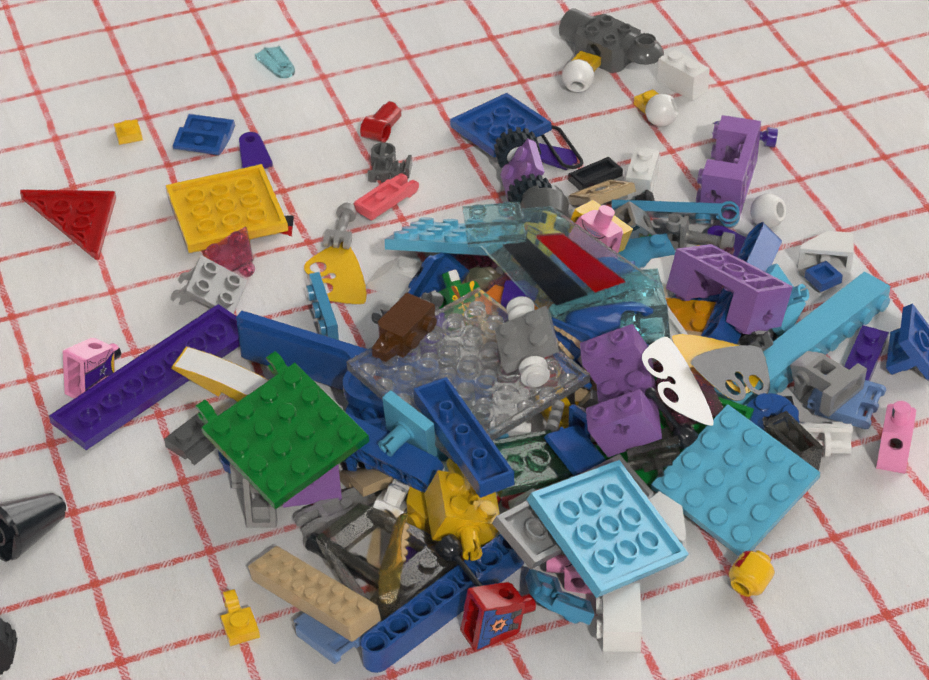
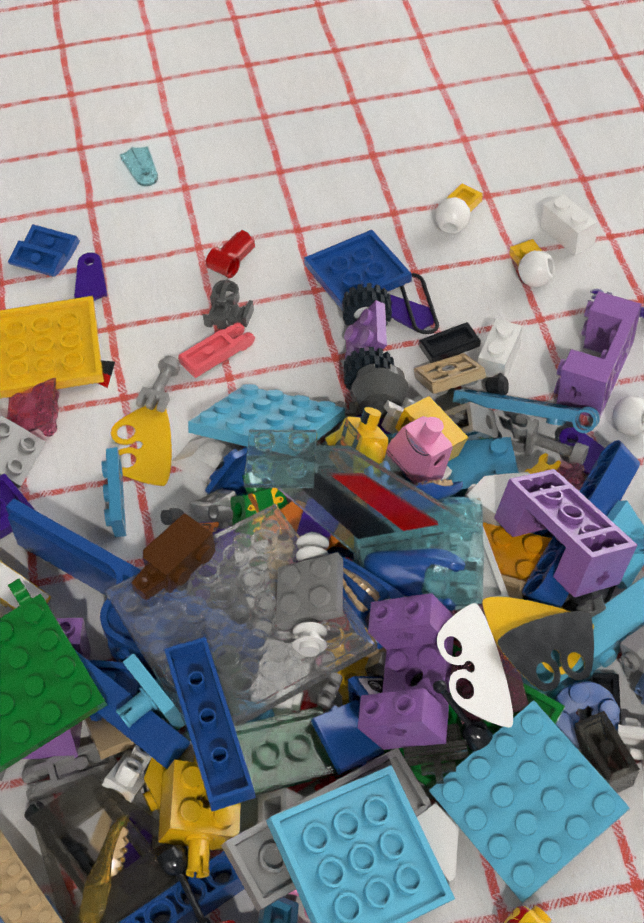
camera: 10 degrees right, 10 degrees up
(610, 39) = (496, 174): dark grey brick -> none

